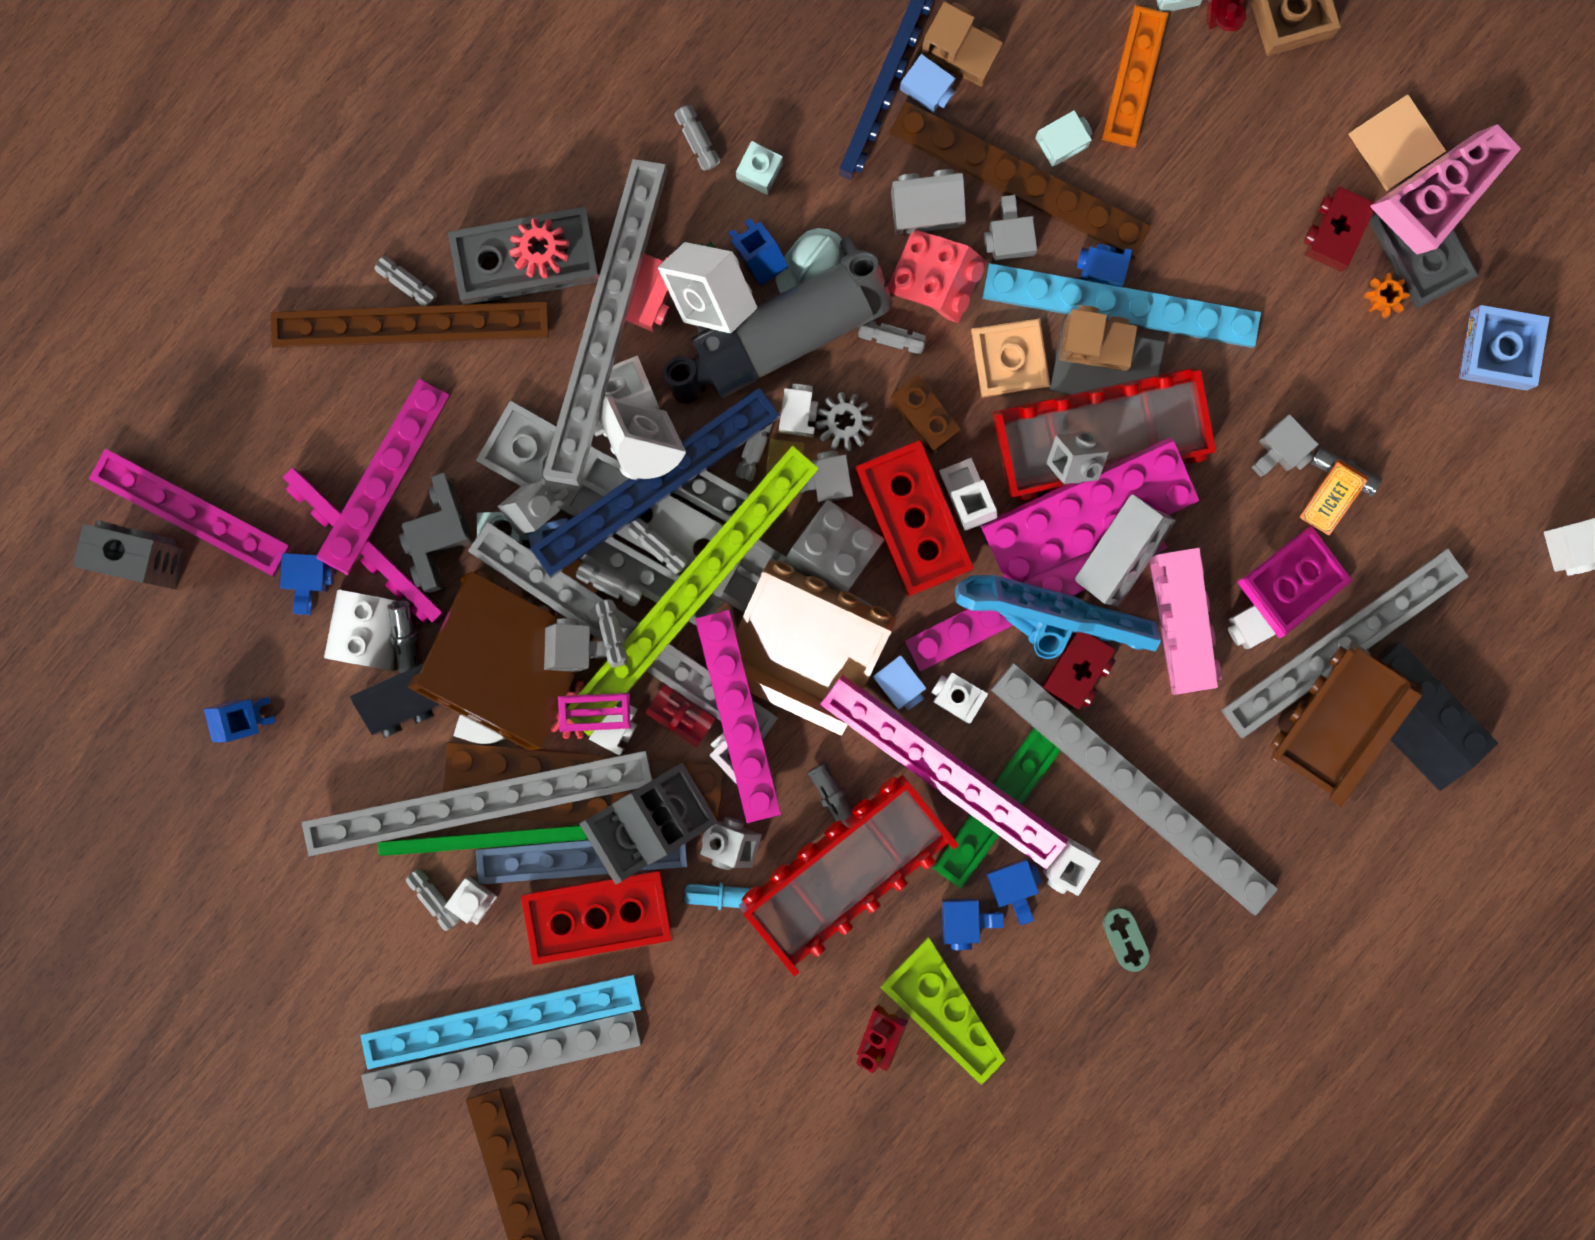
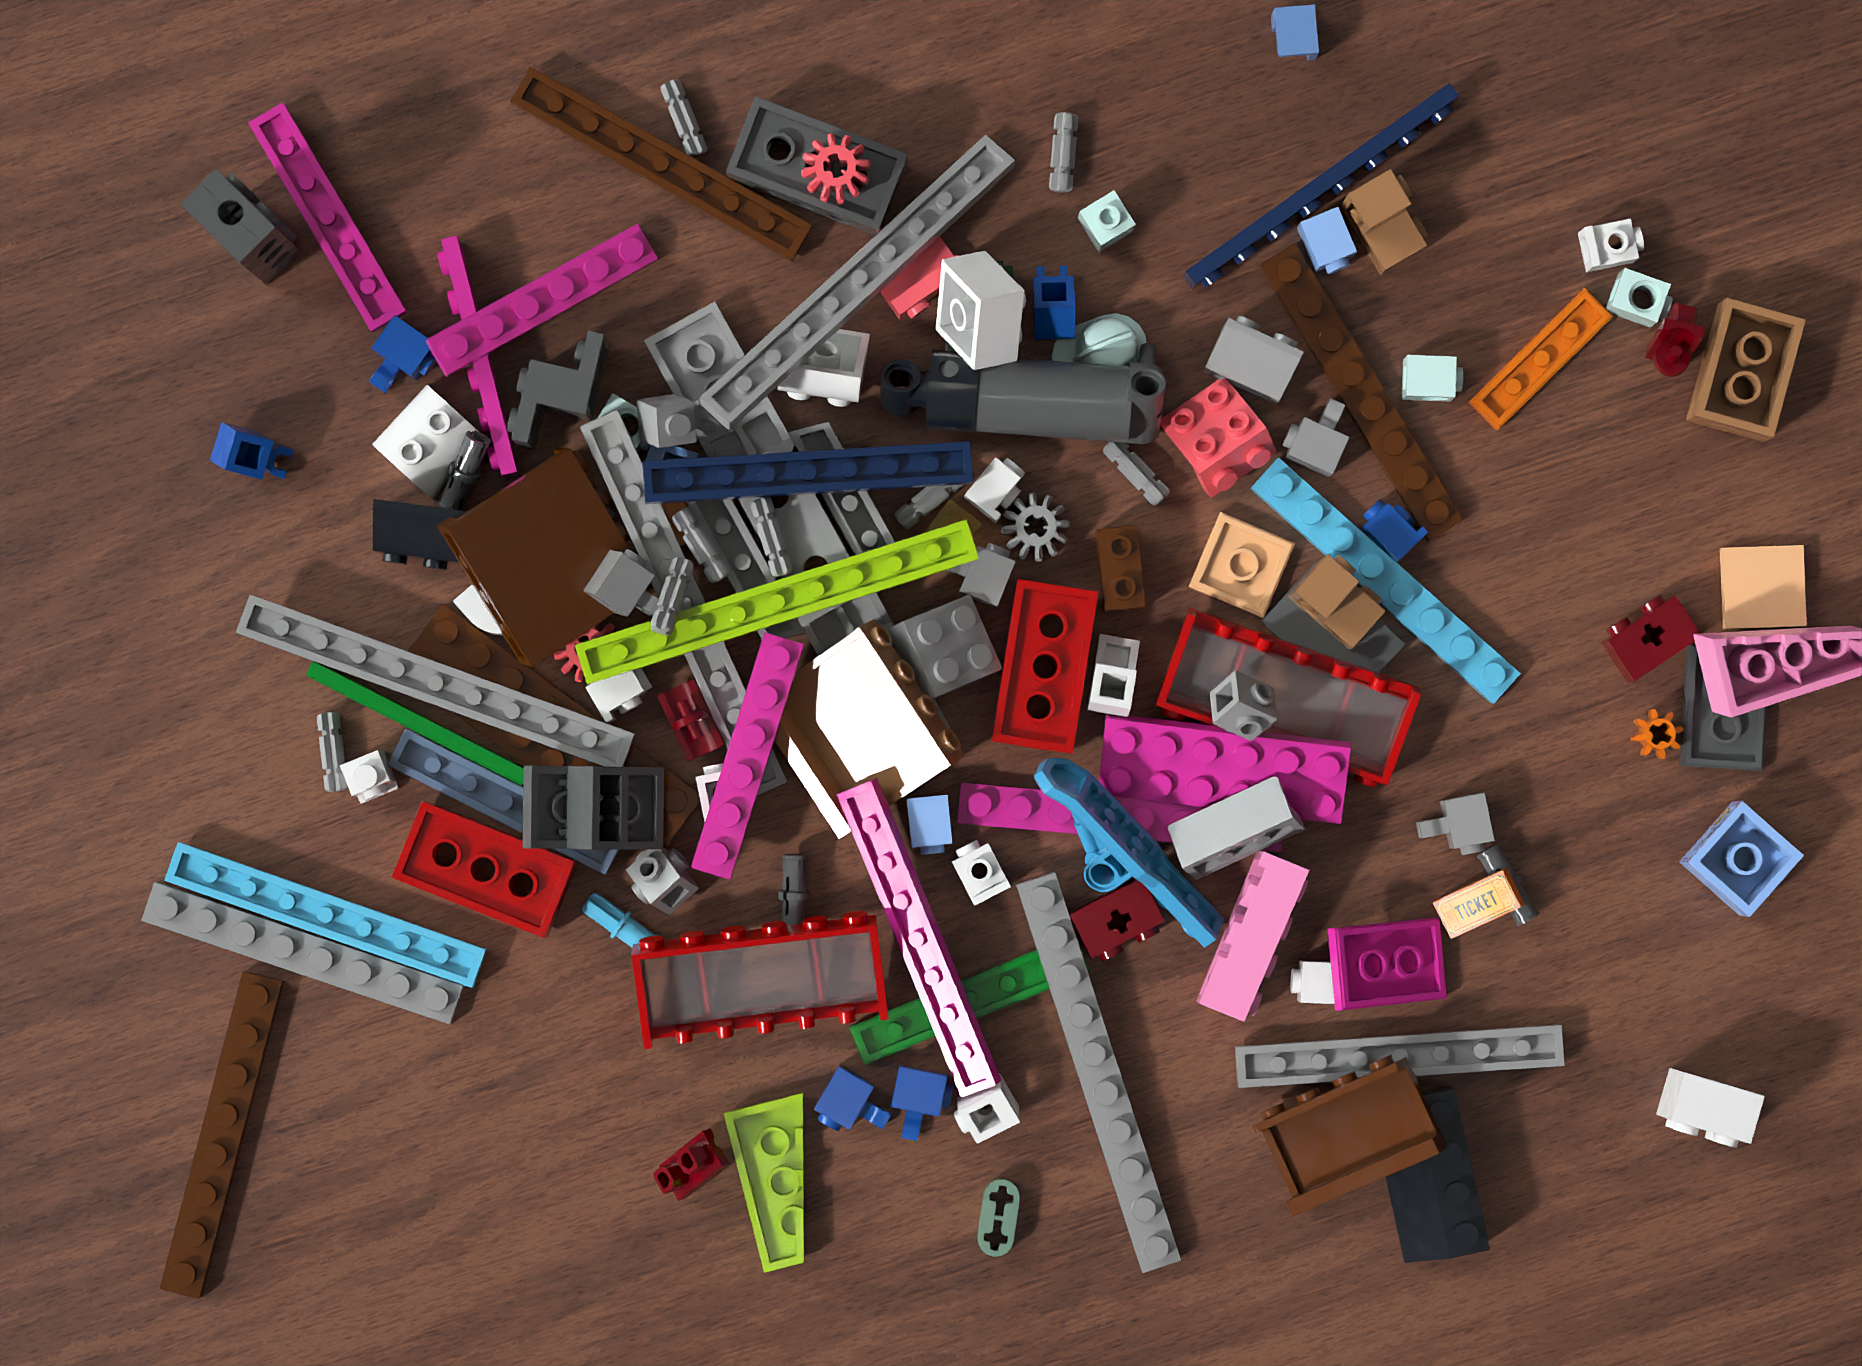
camera: 25 degrees right, 0 degrees up
(624, 710) = (638, 681): dark pink tile -> none
(641, 438) = (820, 420): white brick -> none

